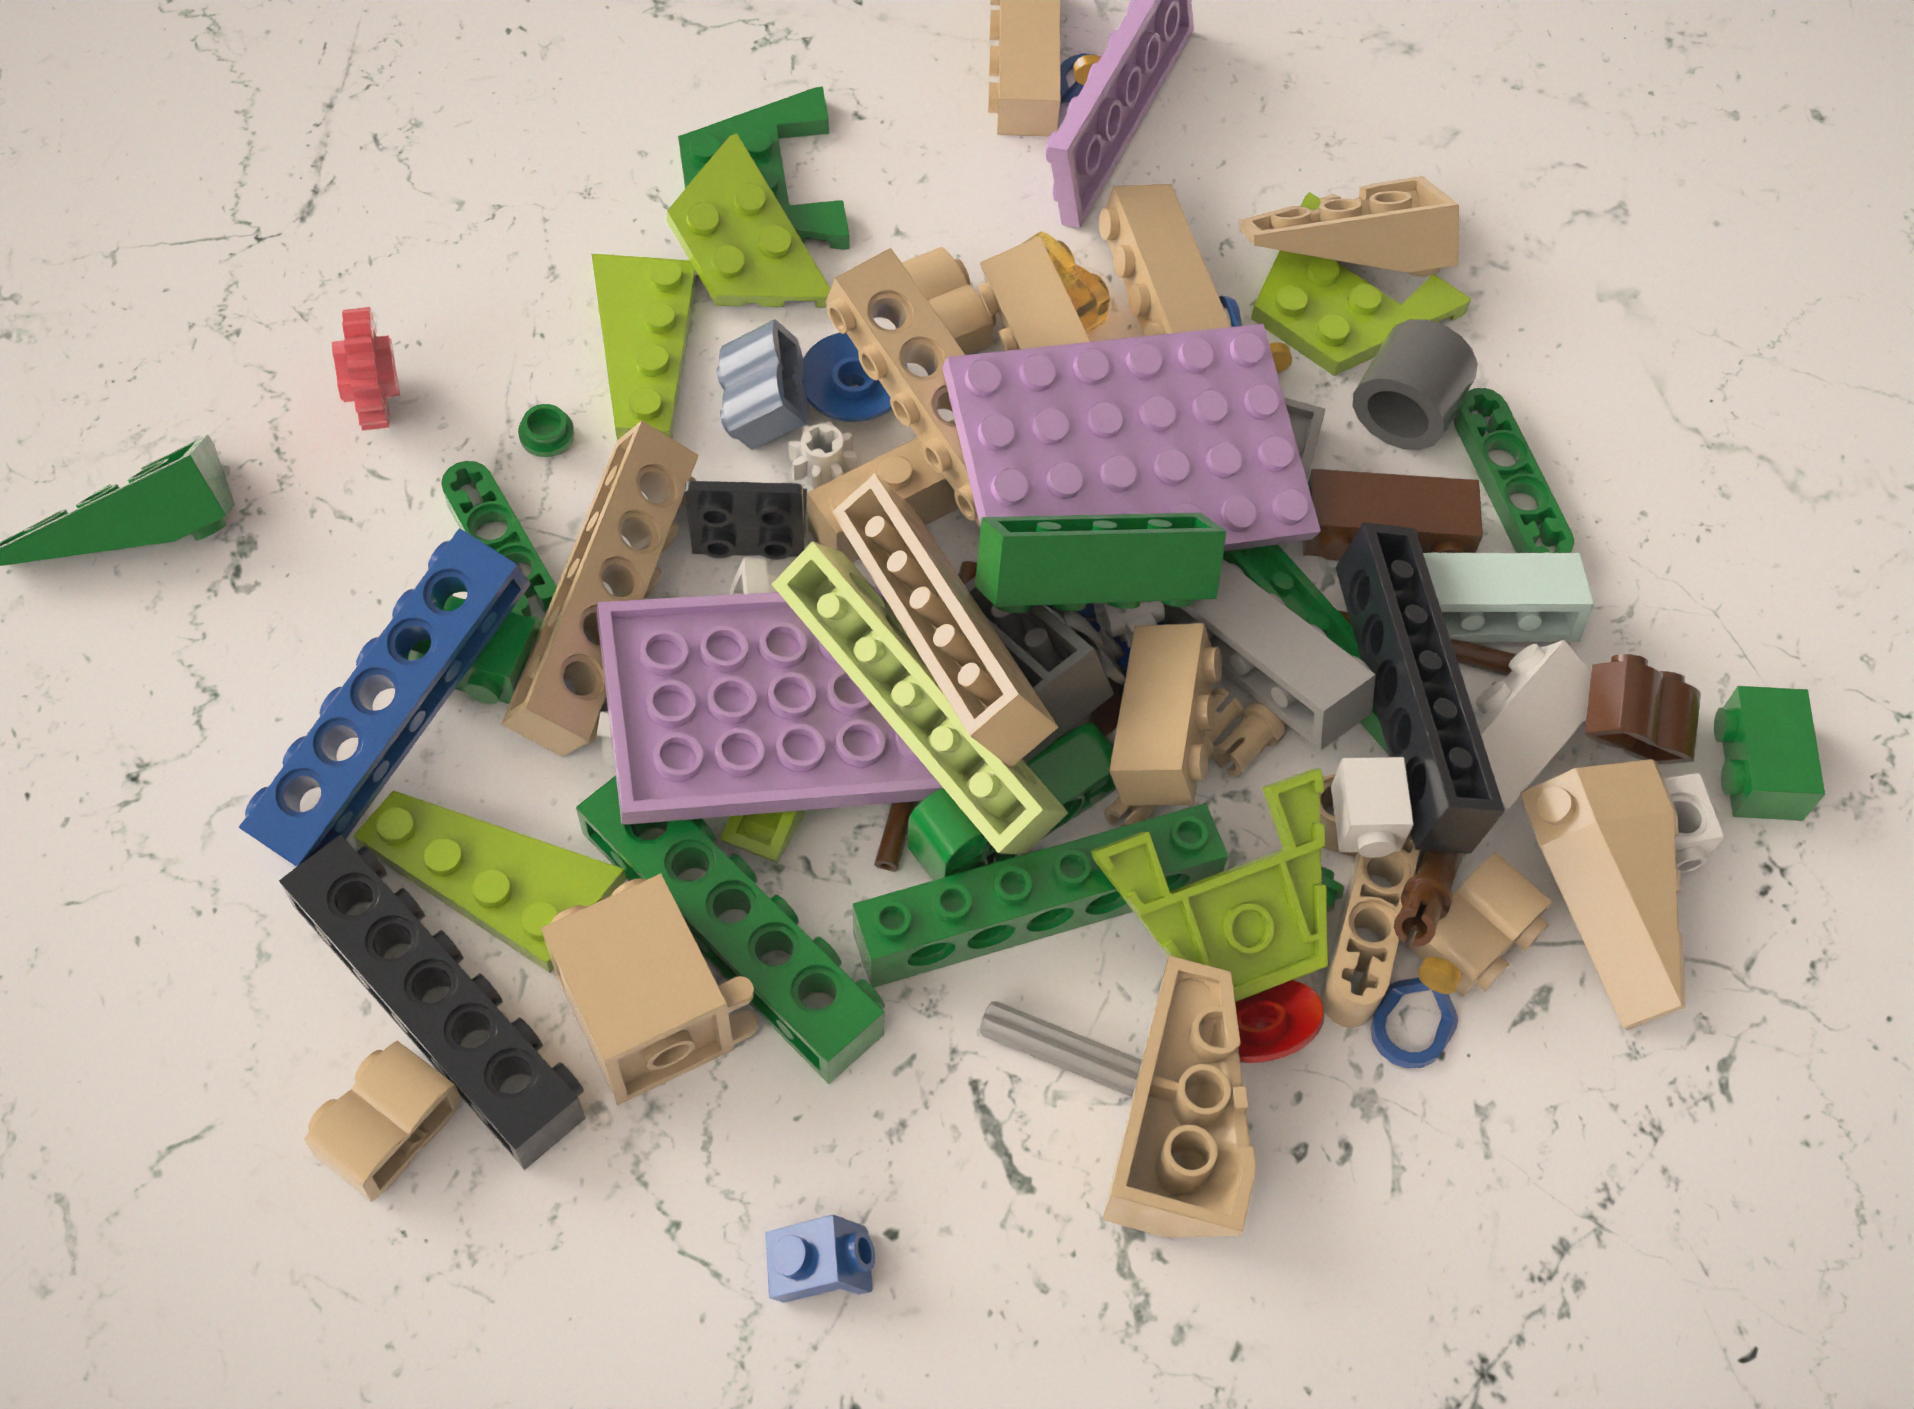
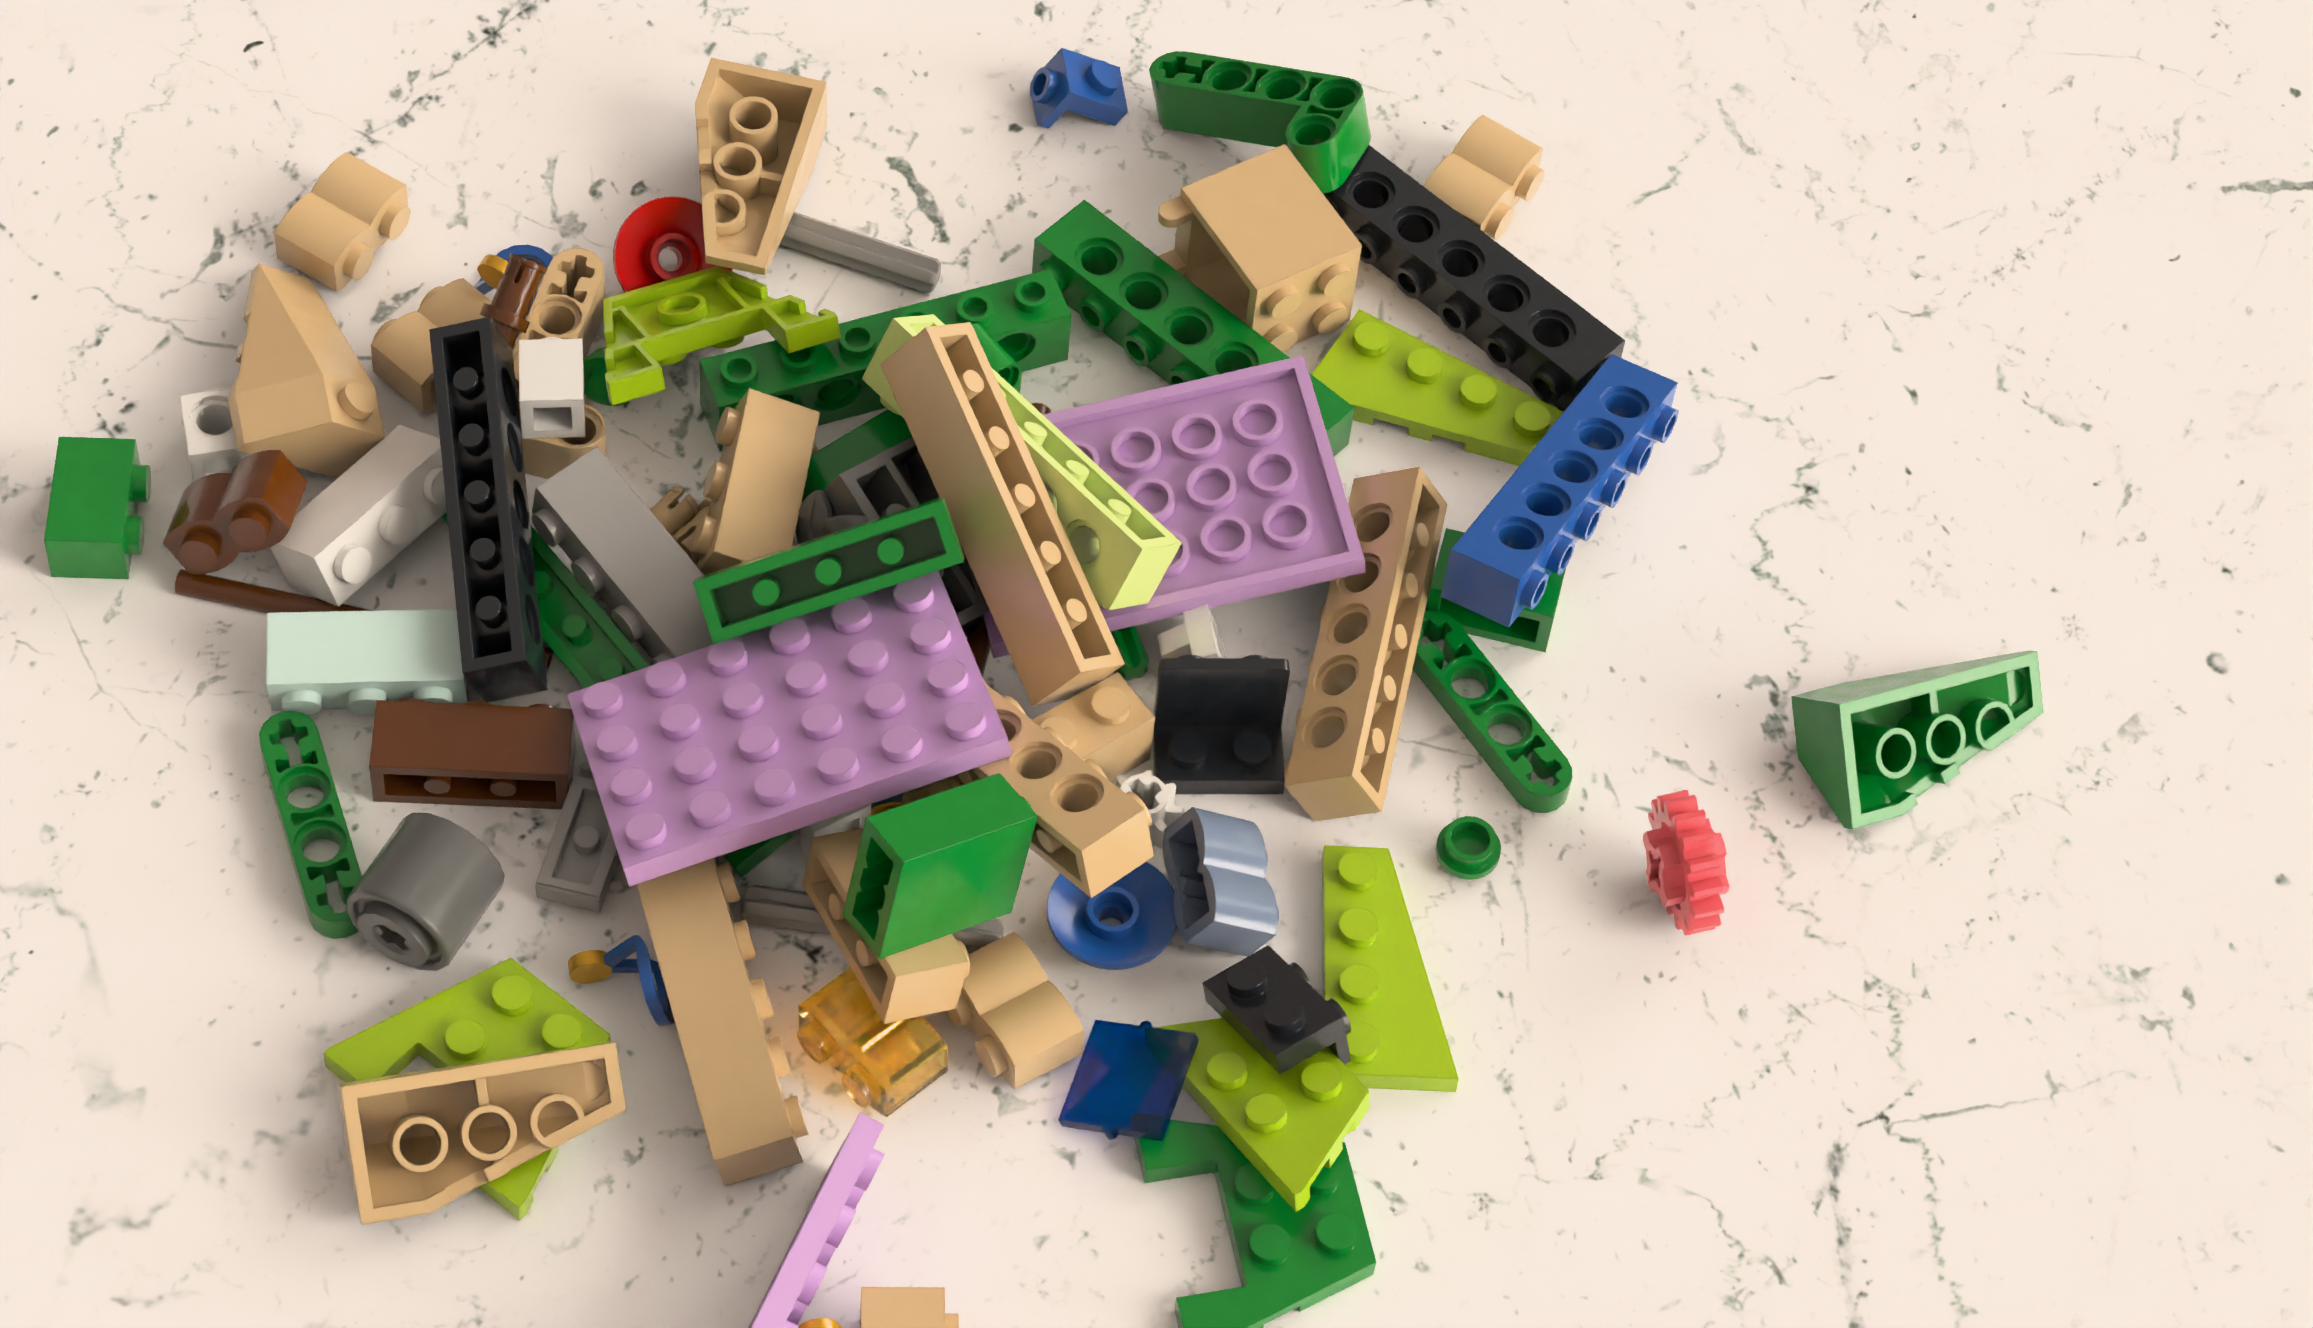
camera: 175 degrees right, 5 degrees down
(624, 1174) = (1268, 105): none -> green beam
(728, 273) = (1278, 1010): none -> black bracket
(841, 245) = (1128, 1080): none -> clear blue piece
(1006, 280) = (939, 865): none -> green brick
(1605, 1075) = (342, 222): none -> tan brick

